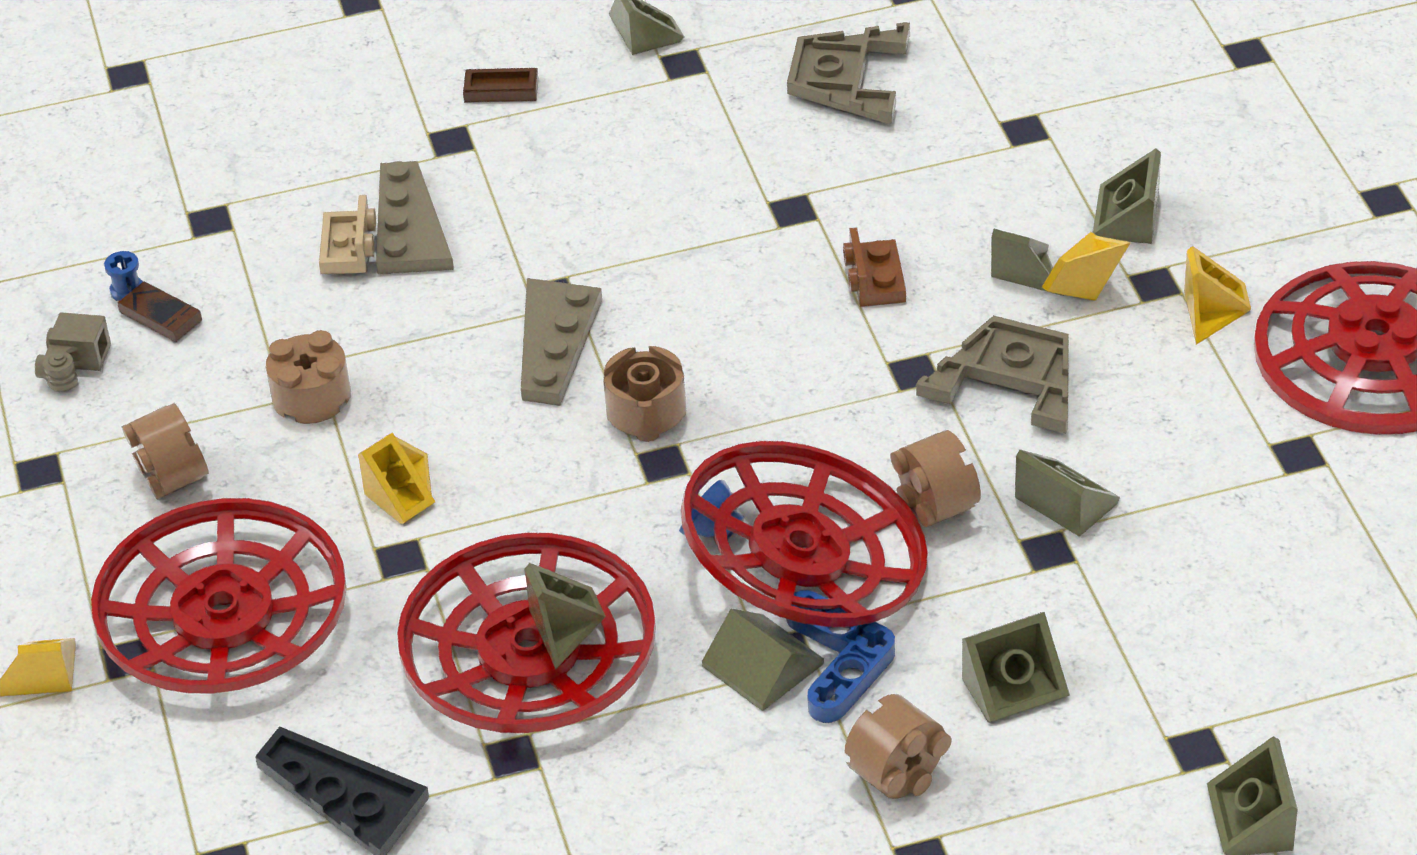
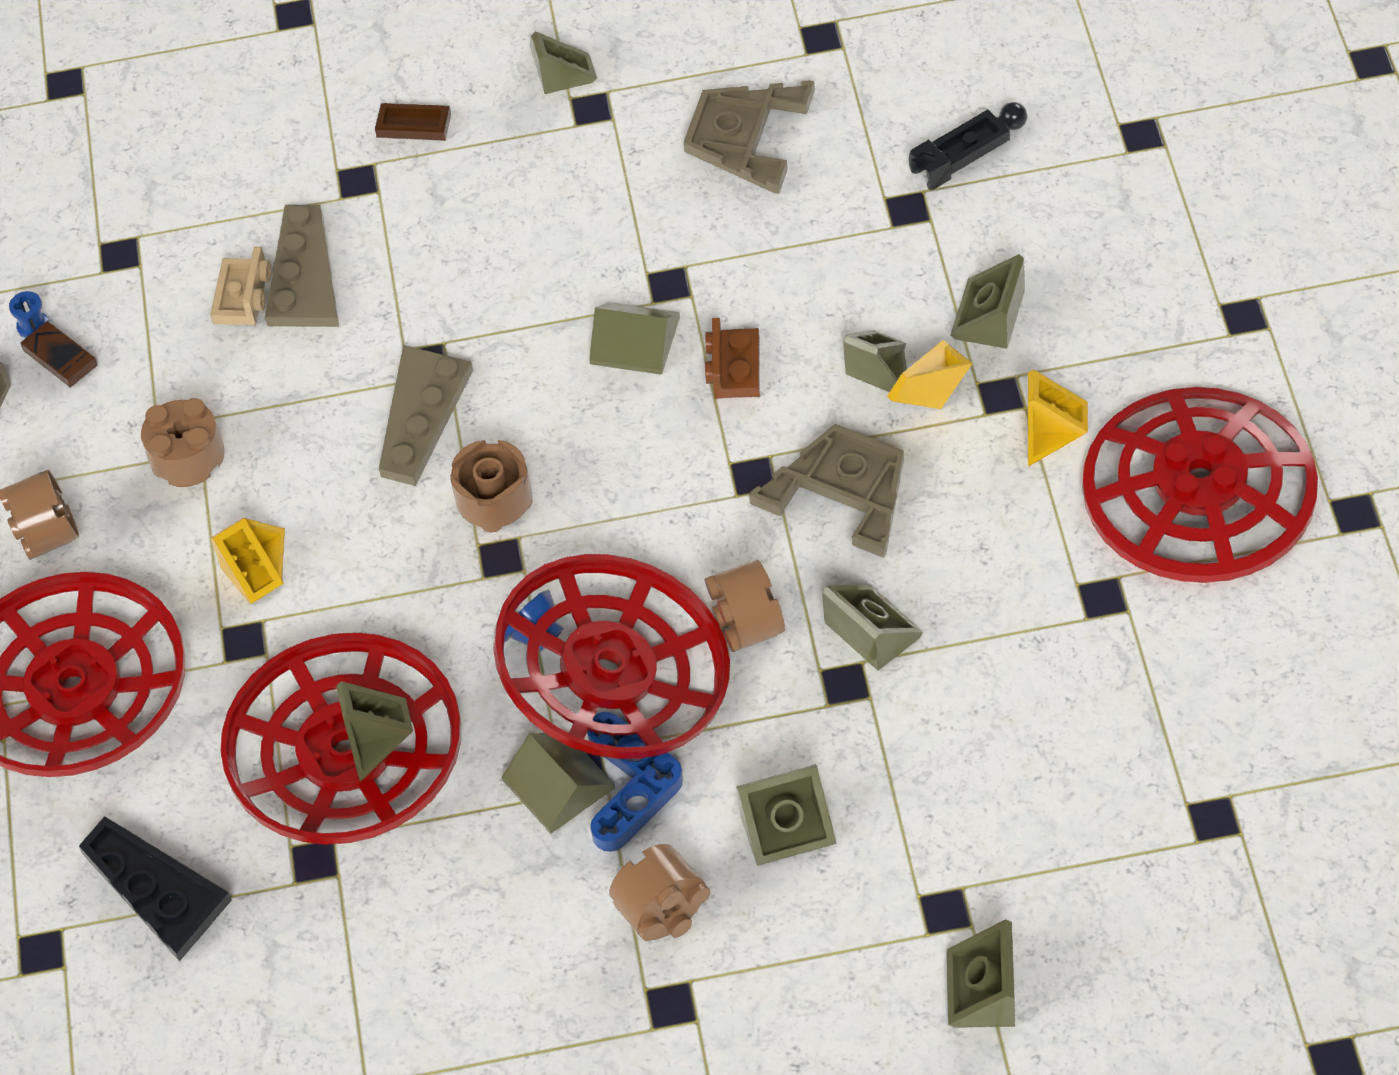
camera: 10 degrees right, 10 degrees up
(765, 257) = (632, 337): none -> olive slope
(1073, 68) = (965, 143): none -> black plate

